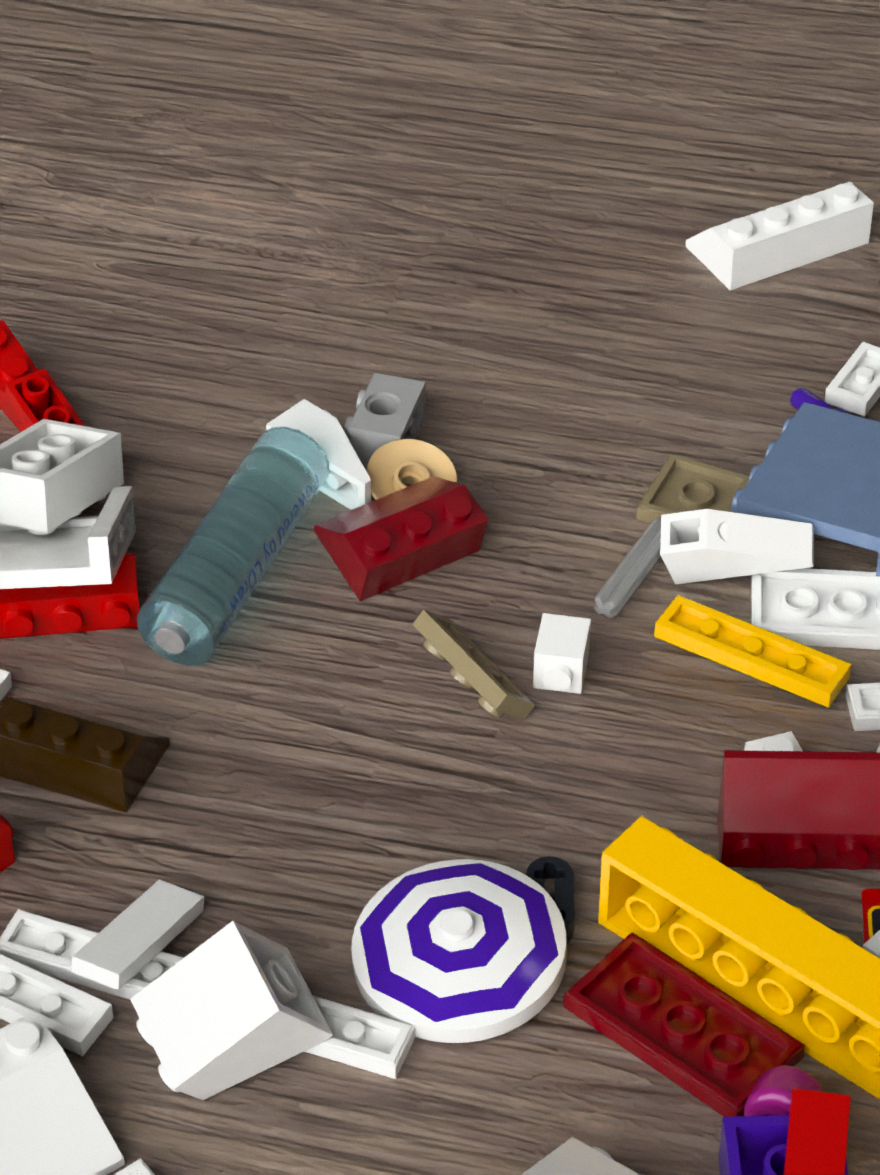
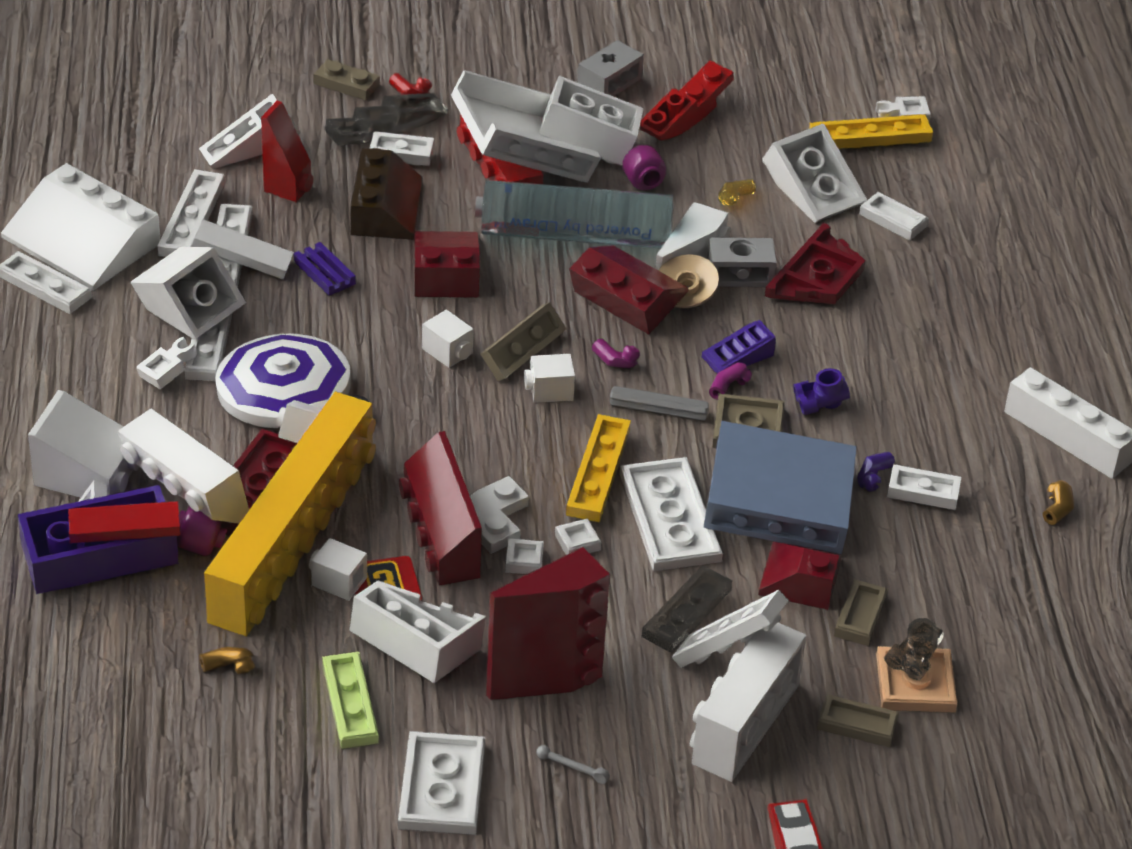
camera: 70 degrees right, 0 degrees up
(136, 207) = (903, 107): none -> white plate
(151, 460) = (644, 167): none -> magenta head
(165, 250) = (879, 131): none -> yellow plate
(204, 847) = (329, 267): none -> dark purple tile
(225, 400) = (733, 190): none -> clear yellow arm
(234, 315) = (814, 173): none -> white slope
(255, 707) = (447, 264): none -> dark red slope
(336, 277) = (893, 216): none -> white tile
(381, 1088) = (166, 365): none -> white plate
(427, 352) = (818, 270): none -> dark red wing
(439, 741) = (447, 338): none -> white brick
(527, 589) = (613, 358): none -> magenta arm
(554, 464) = (754, 335): none -> dark purple slope
(593, 931) = (295, 420): none -> white brick
(604, 493) = (725, 377): none -> magenta arm
(669, 418) = (826, 391): none -> dark purple plate
(702, 1072) = (184, 467): none -> white slope
(731, 544) = (681, 430): white slope -> none

